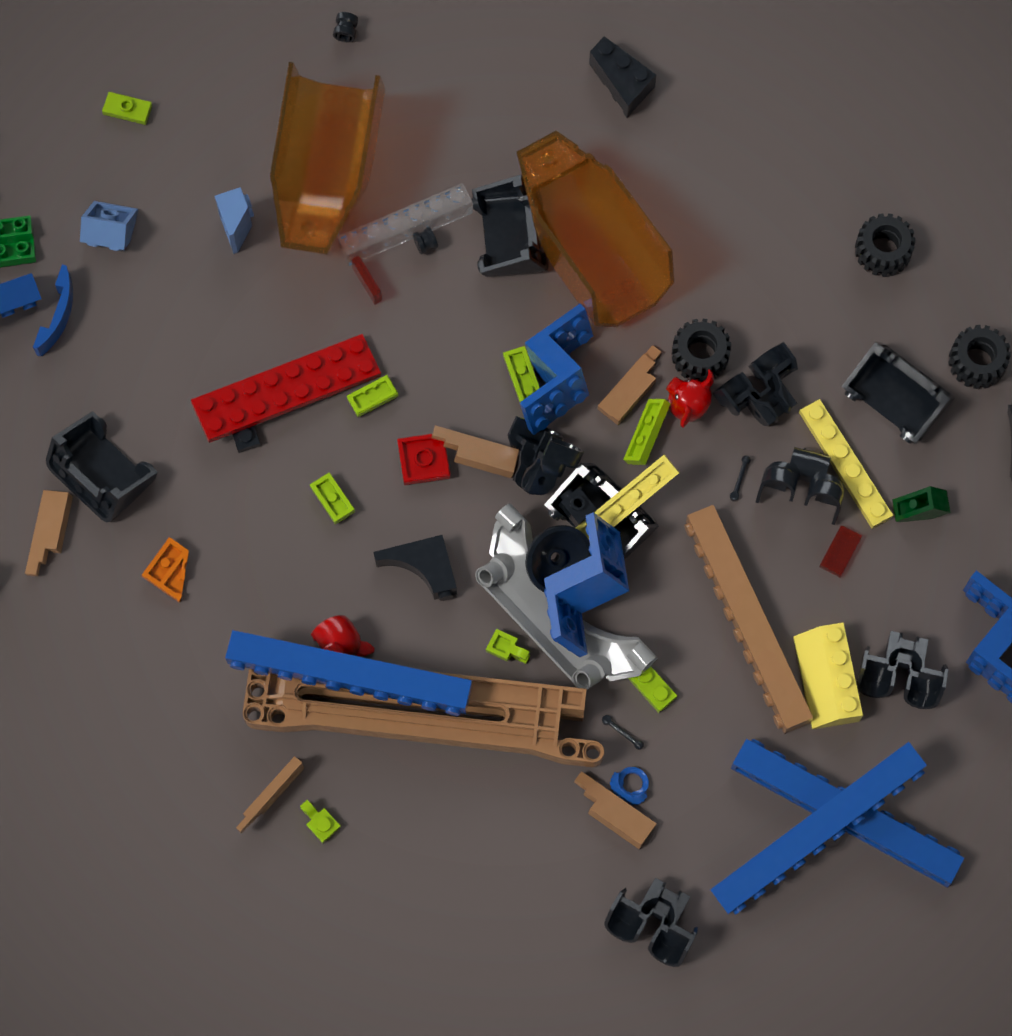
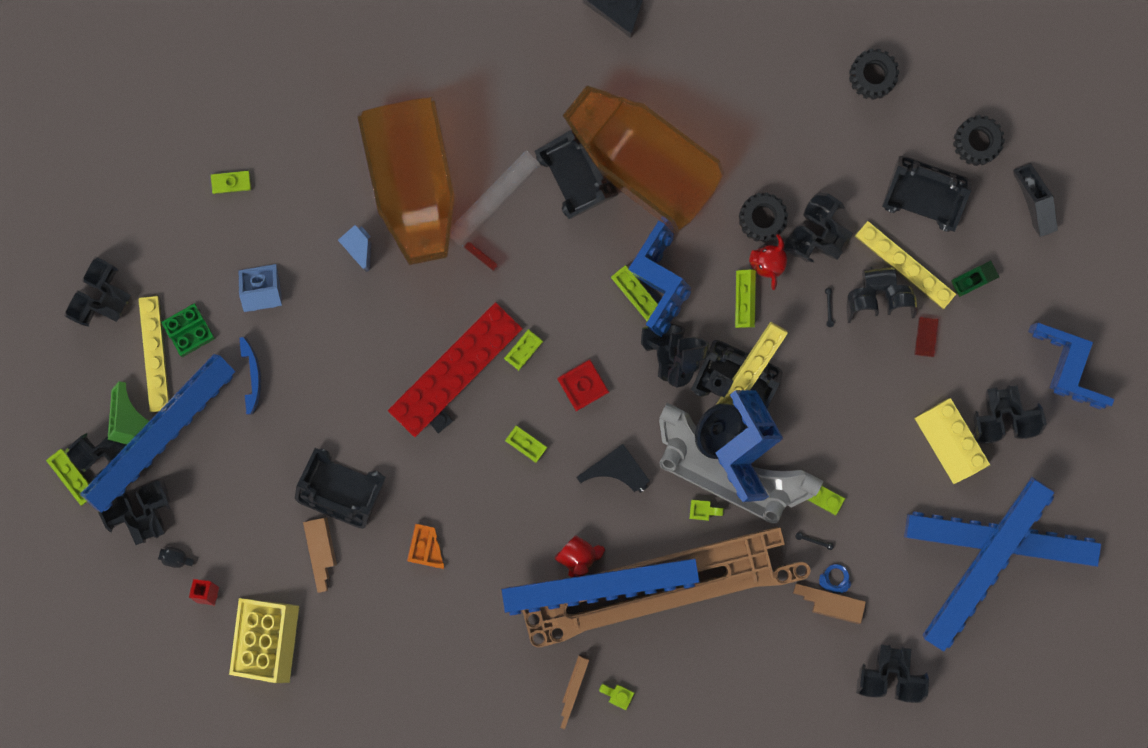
camera: 20 degrees left, 15 degrees up
(345, 27) = (376, 46): black wheel -> none
(425, 240) = (513, 206): black wheel -> none
(478, 452) = (623, 364): medium nougat piece -> none
(630, 388) = (719, 266): medium nougat piece -> none
(748, 619) = (876, 418): medium nougat brick -> none

